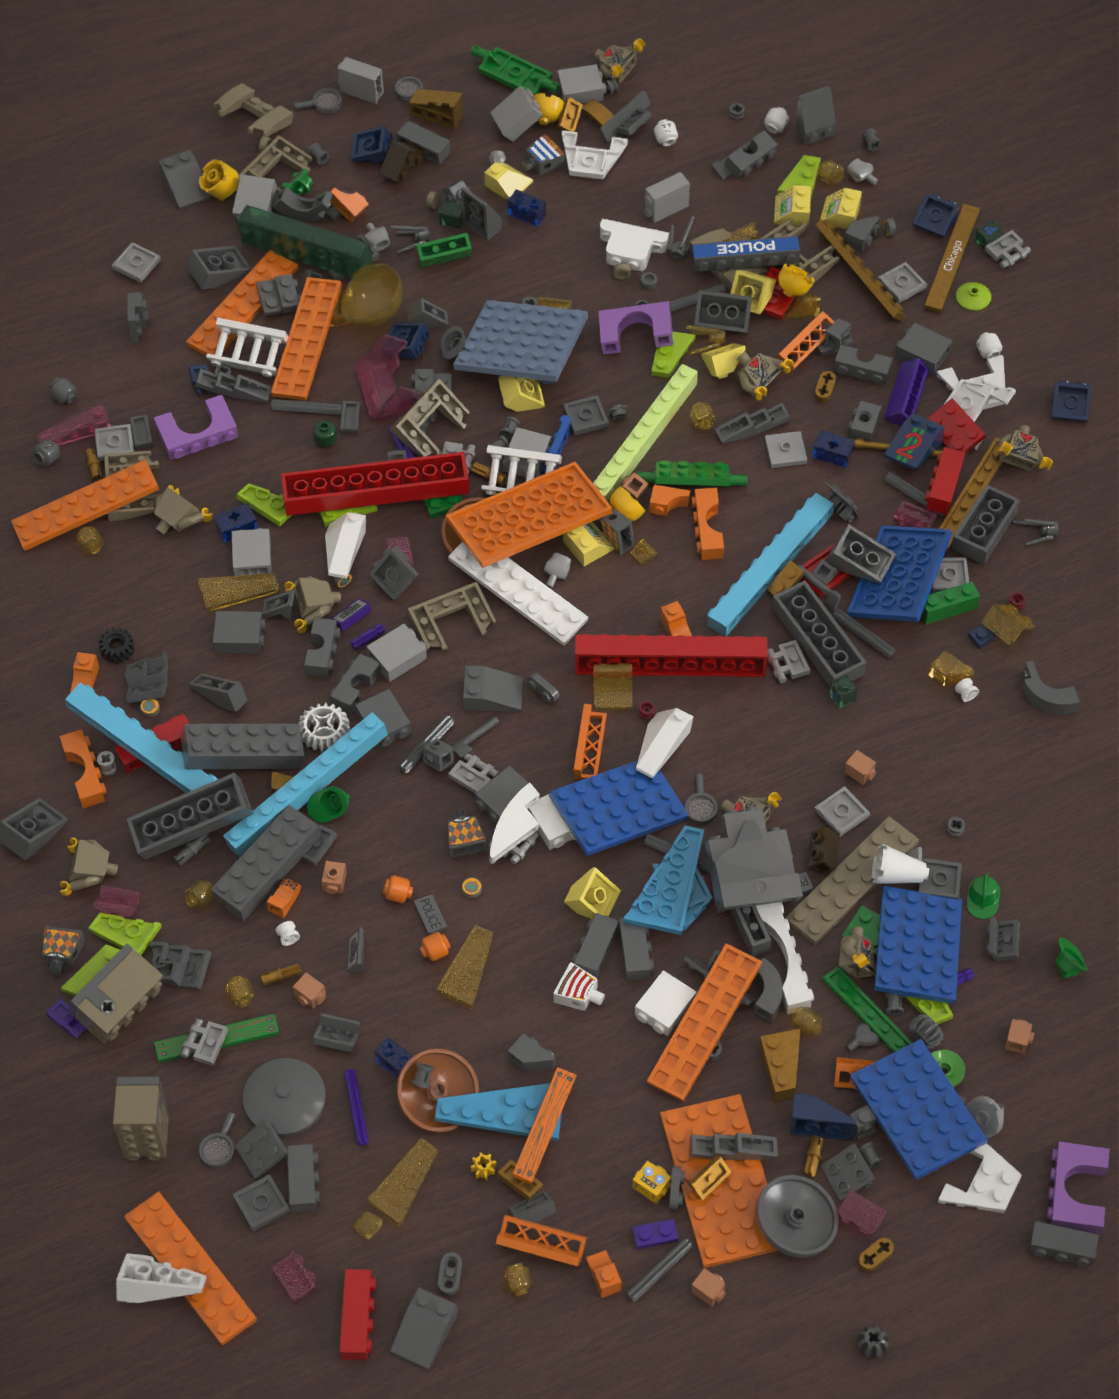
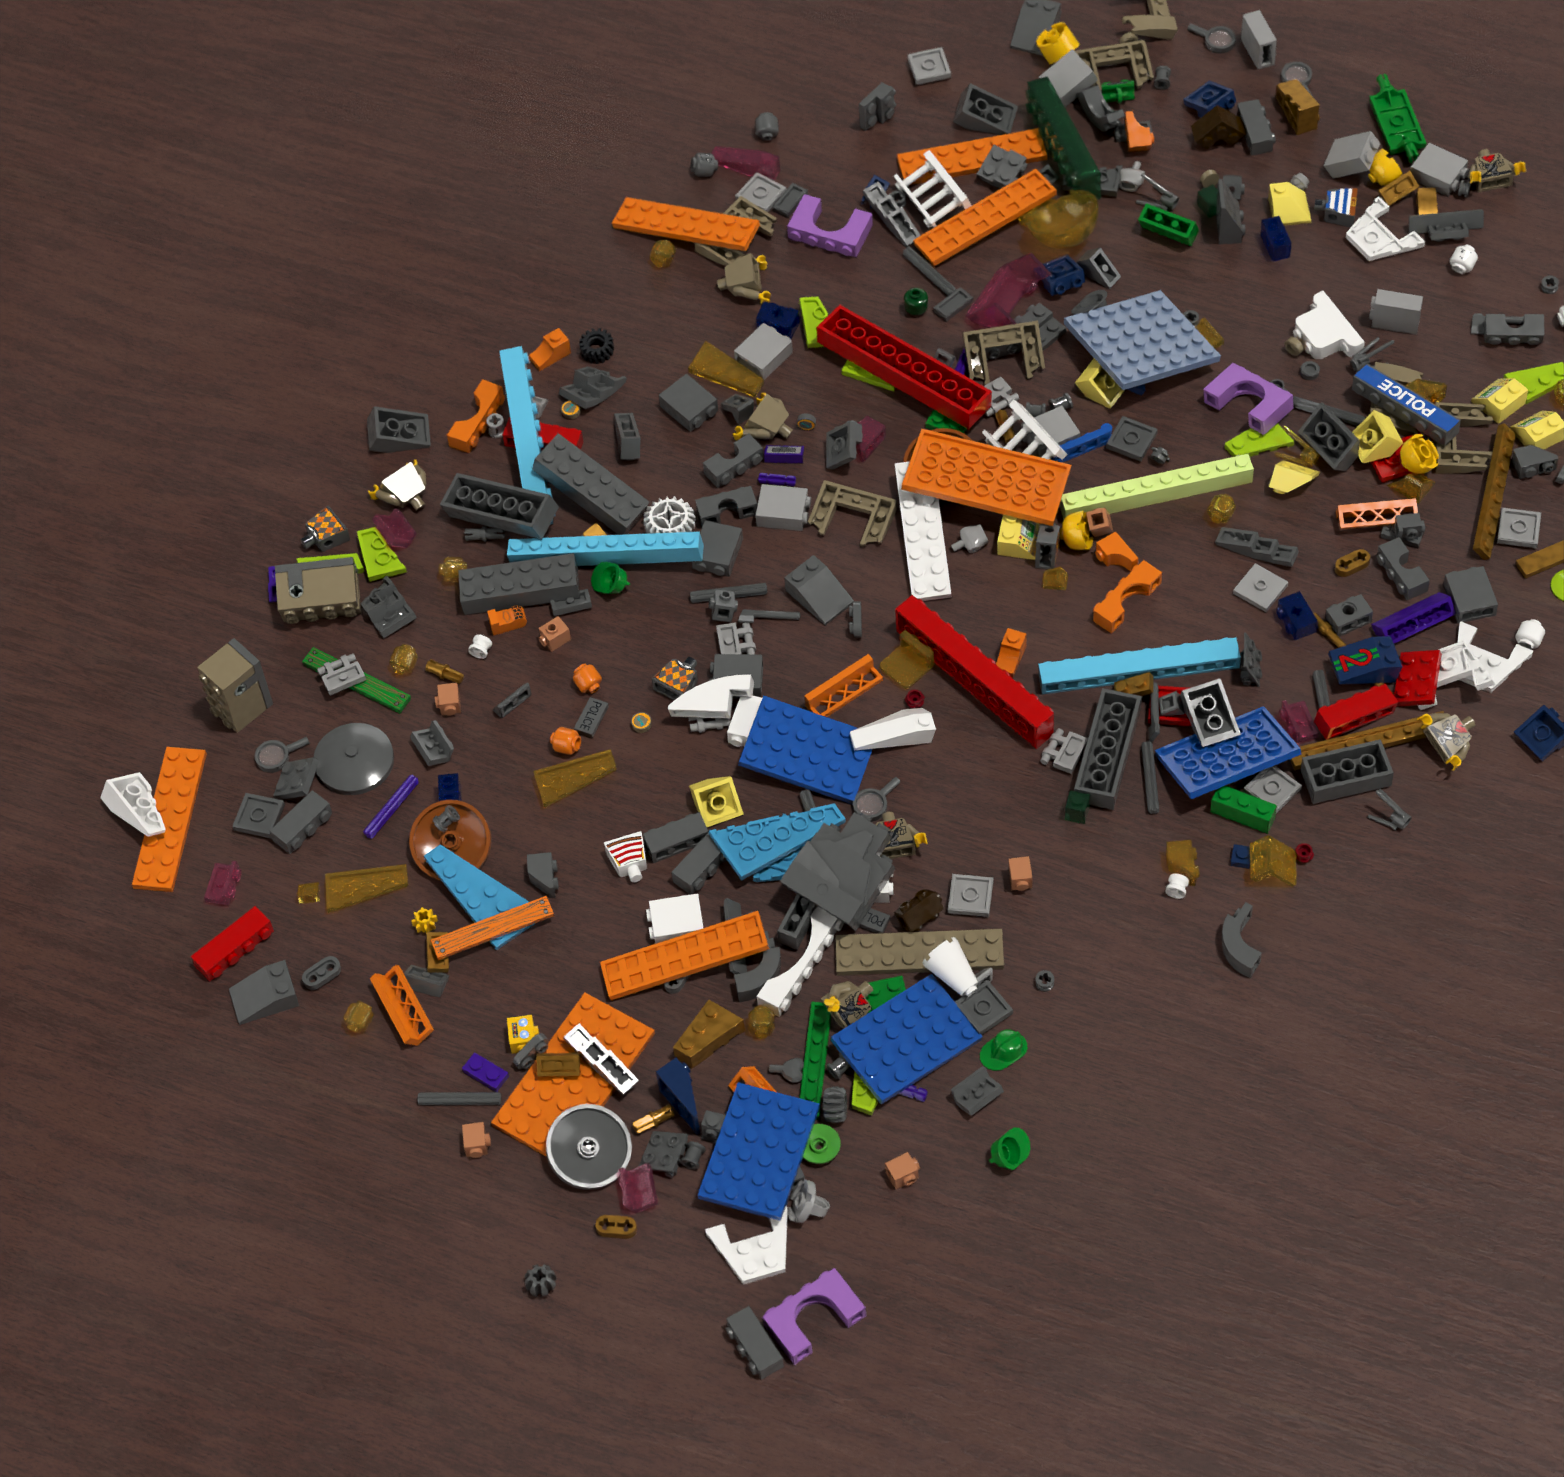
camera: 50 degrees right, 0 degrees up
(93, 465) = (727, 199): pearl gold pin -> none
(343, 543) = (834, 396): white wedge -> none
(604, 1274) = (418, 1066): orange arch -> none
(693, 474) = (1160, 549): green plate -> none
(759, 372) = (1305, 508): torso -> none

